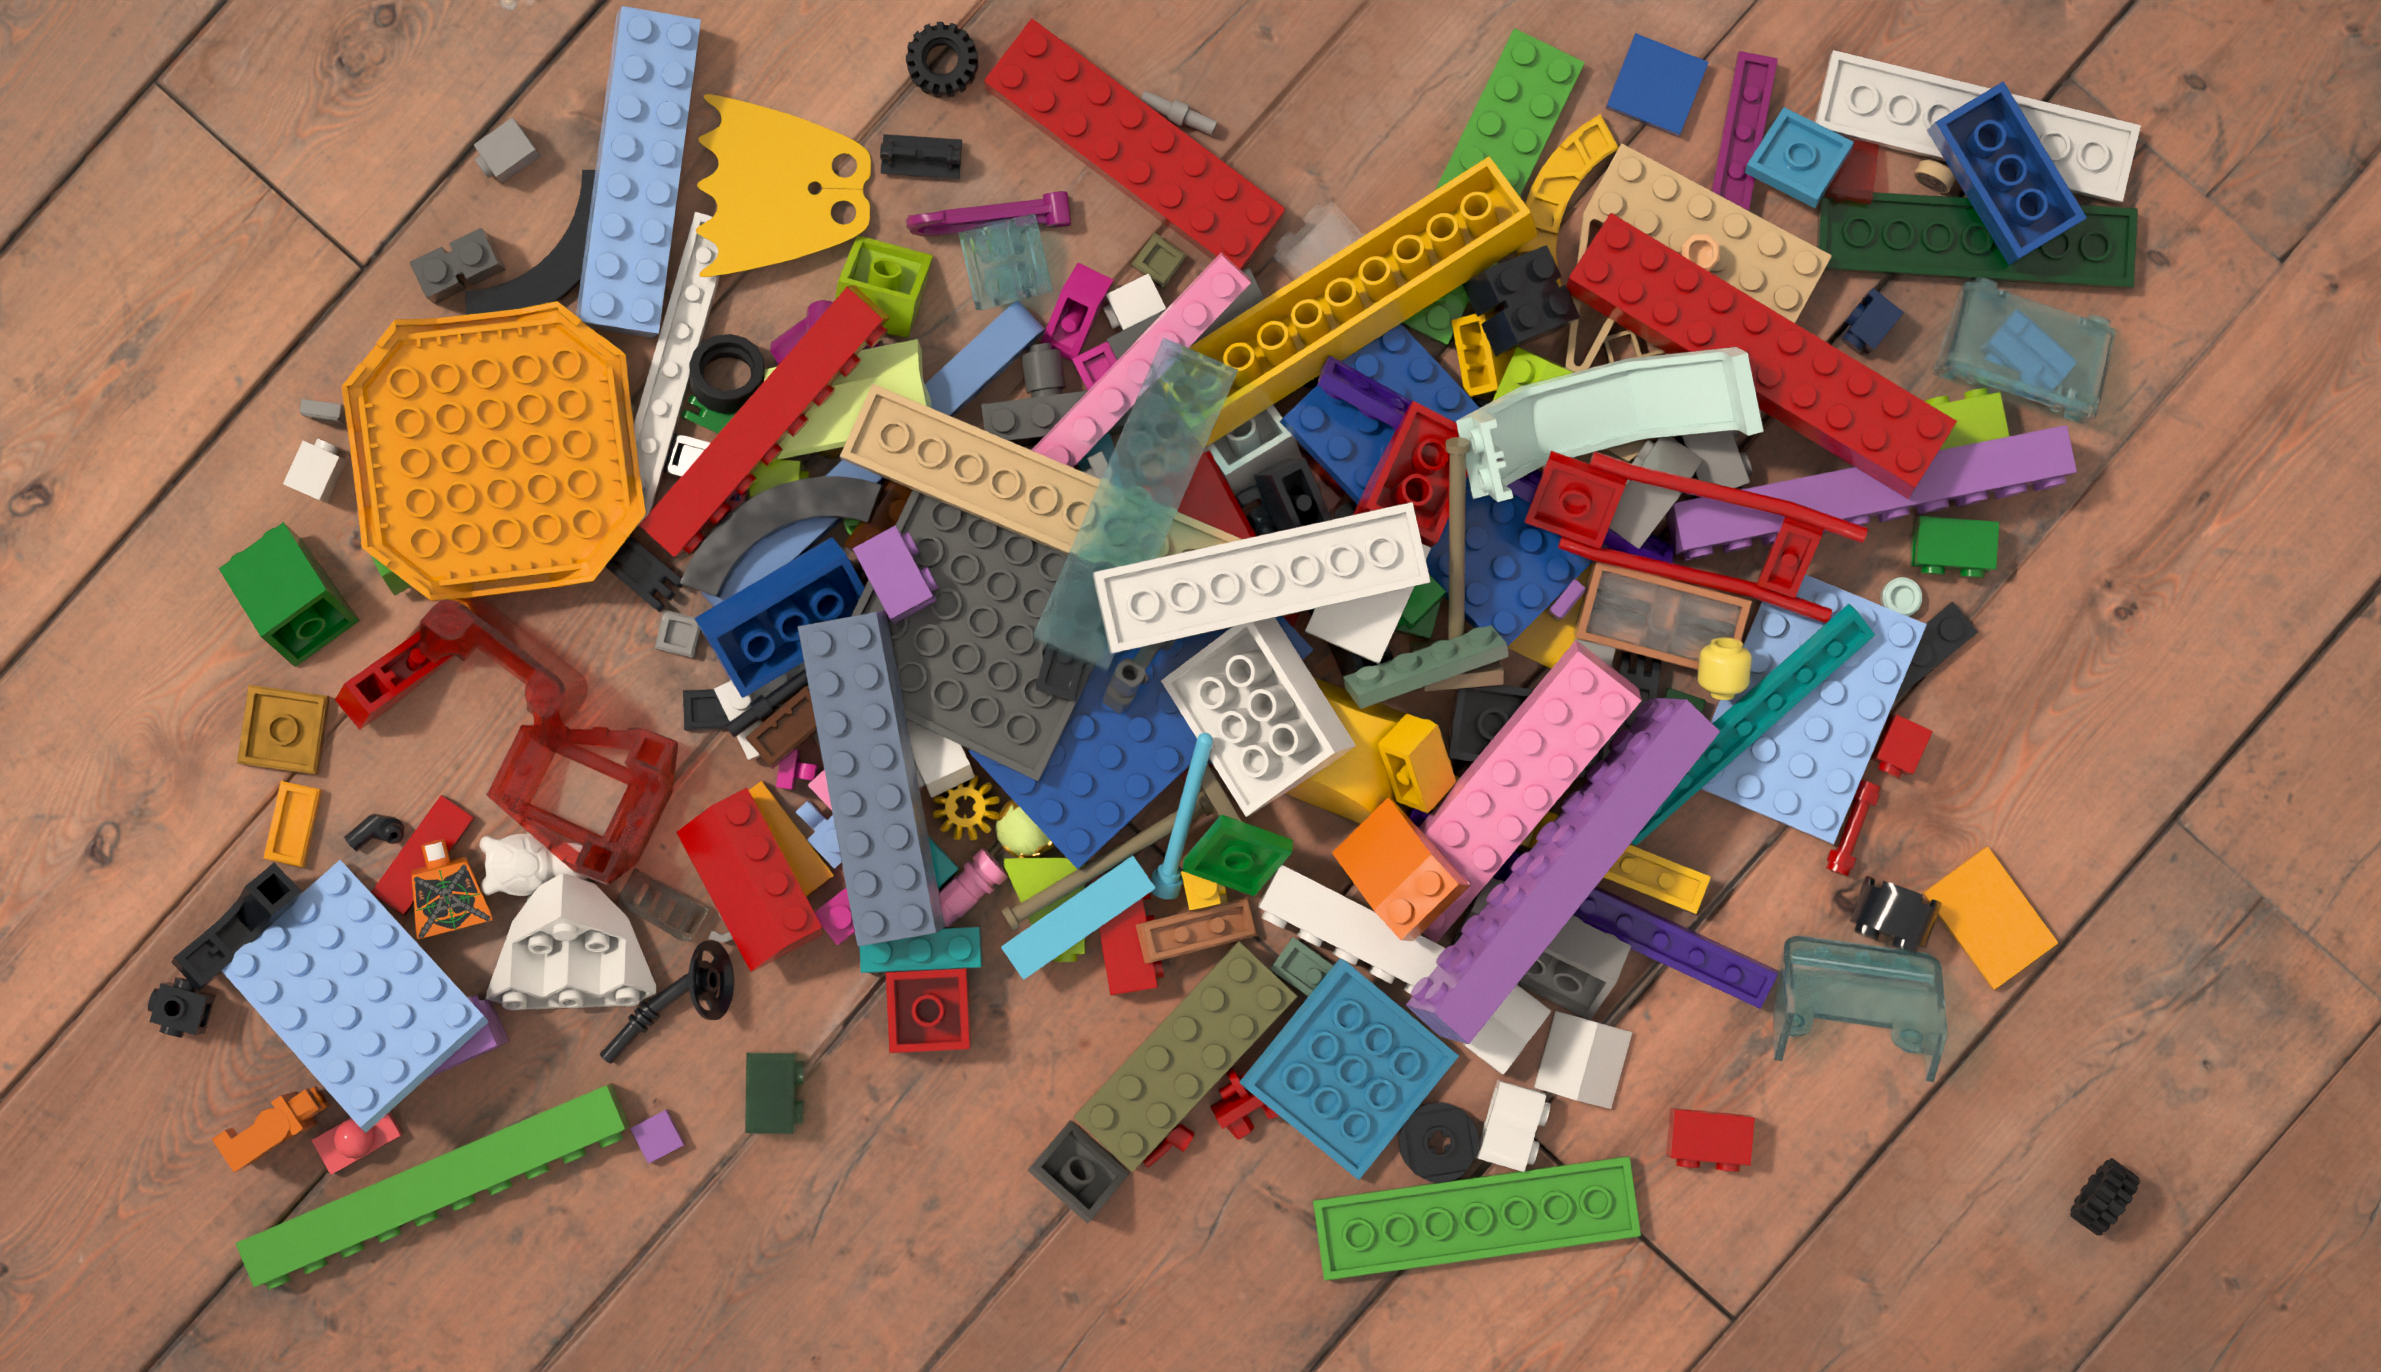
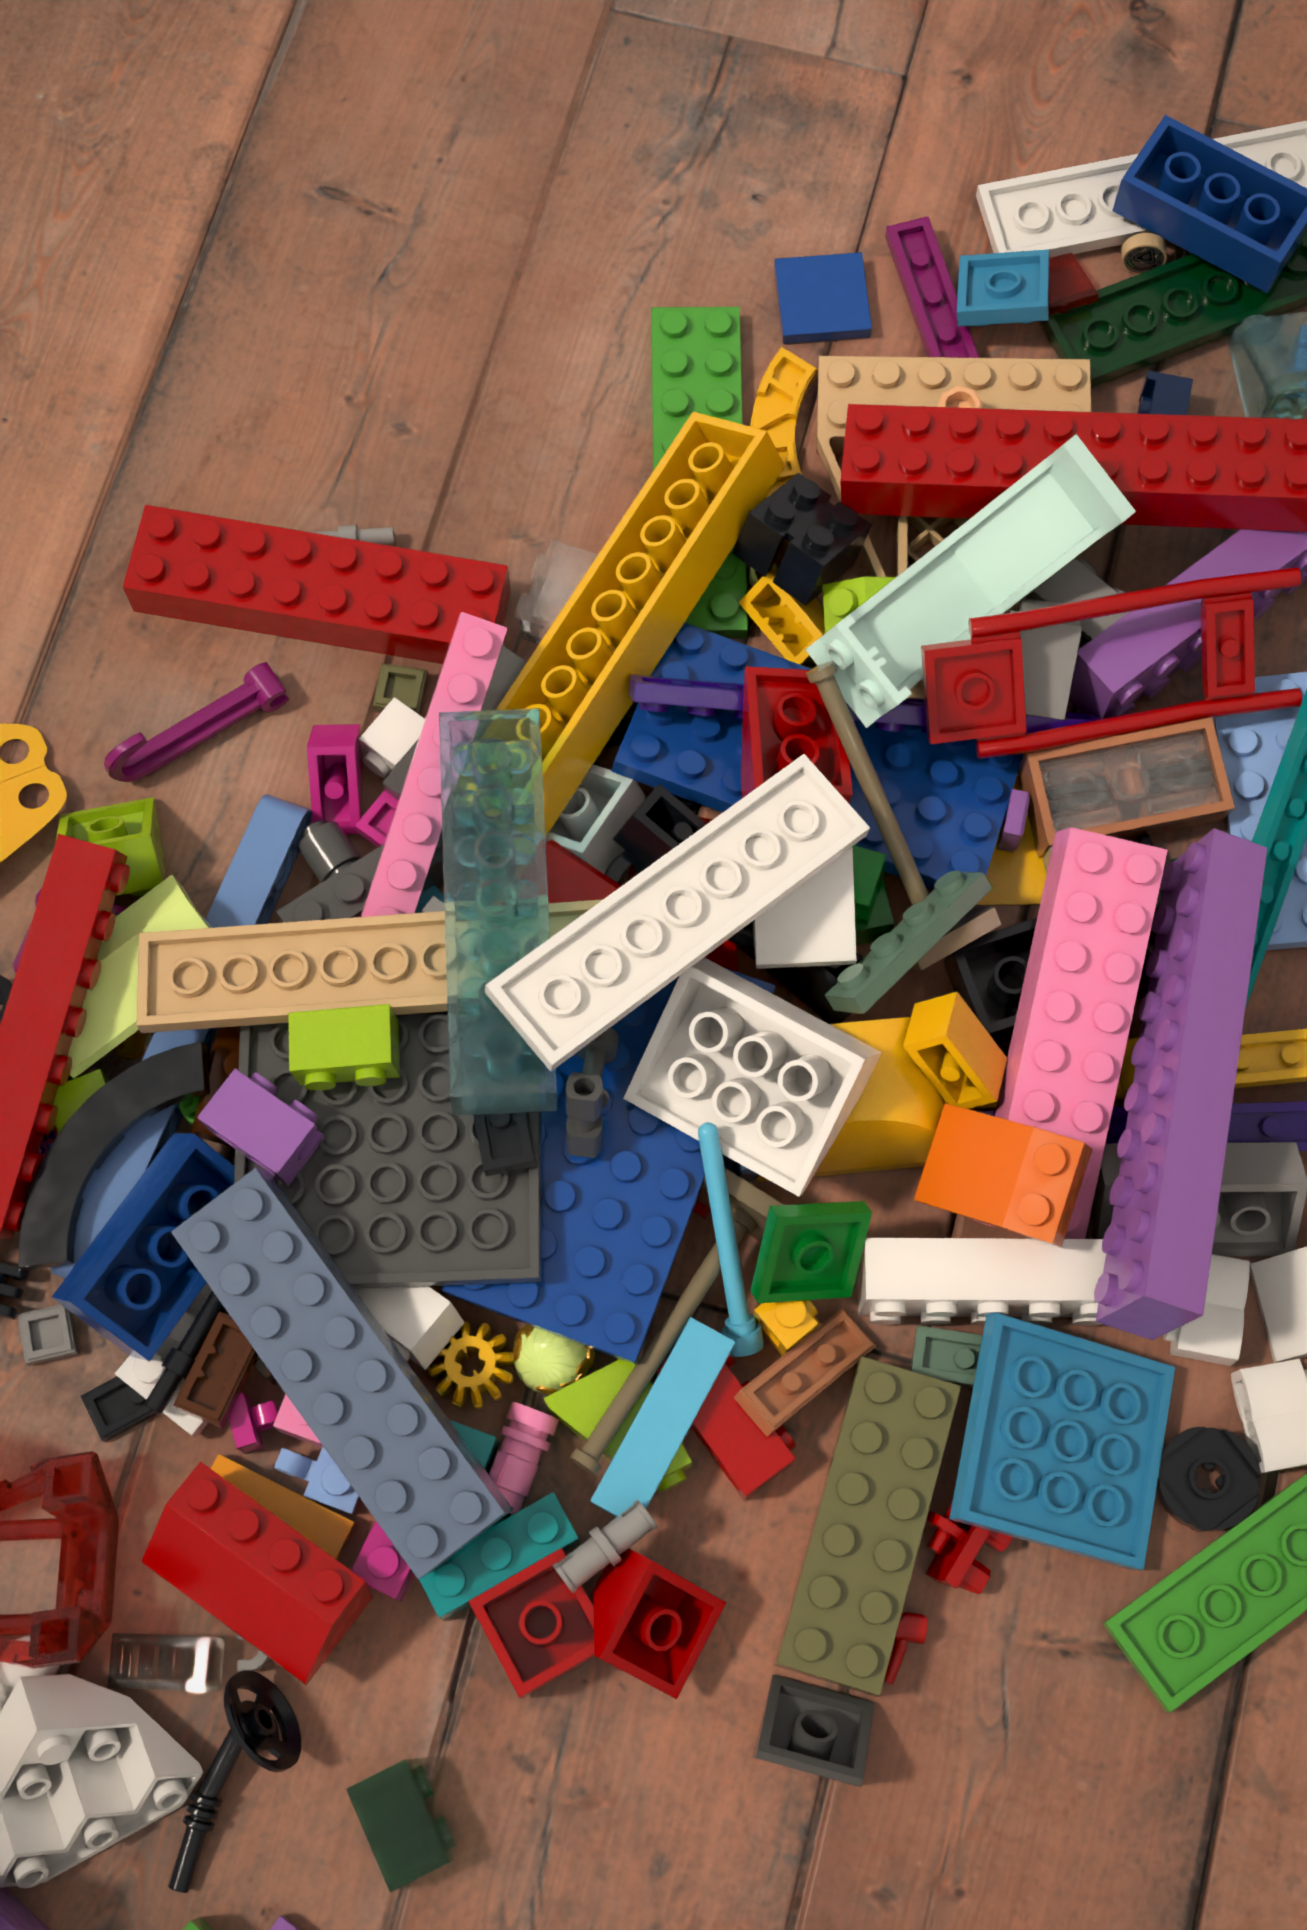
camera: 20 degrees left, 15 degrees down
(921, 156) = (93, 704): black hinge -> none
(935, 36) = (64, 575): black tyre -> none
(980, 545) = (344, 1046): none -> lime brick
(995, 983) = (605, 1546): none -> light grey pin
(1003, 1046) = (651, 1621): none -> red slope
(1005, 261) = (233, 757): clear light blue plate -> none
(1724, 668) = (1226, 794): light yellow head -> none

